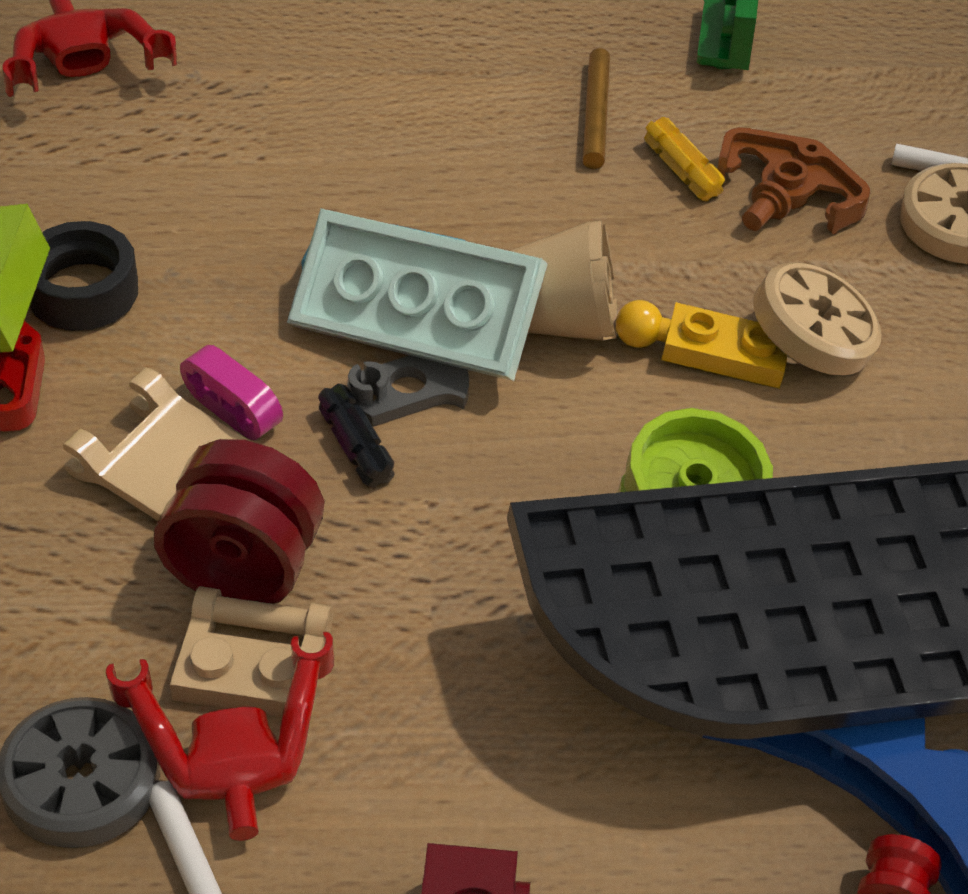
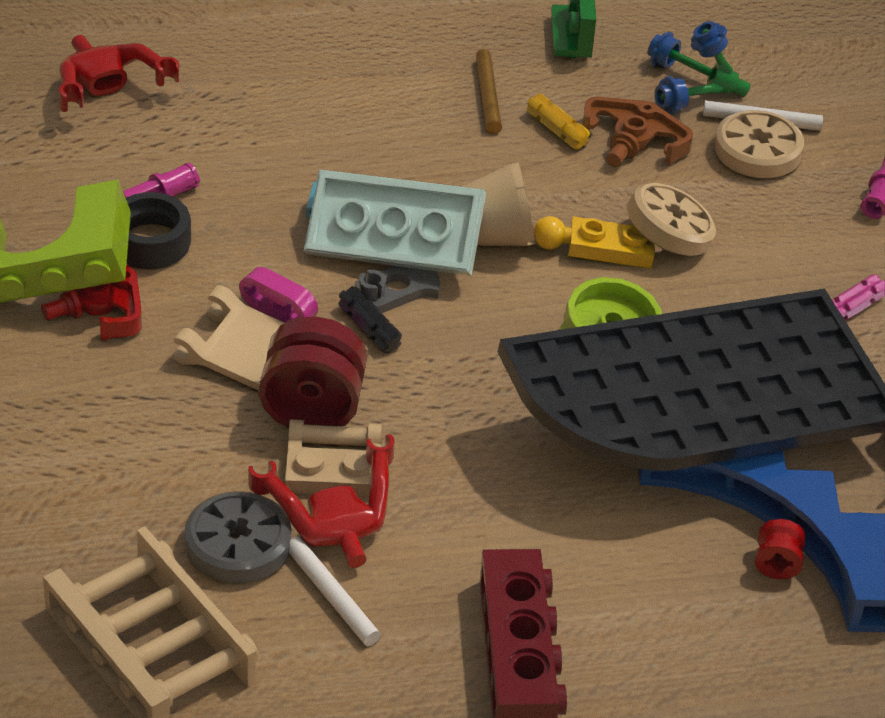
camera: 10 degrees left, 5 degrees down
(123, 209) = (169, 183): none -> dark pink axle
(909, 60) = (709, 41): none -> blue plant

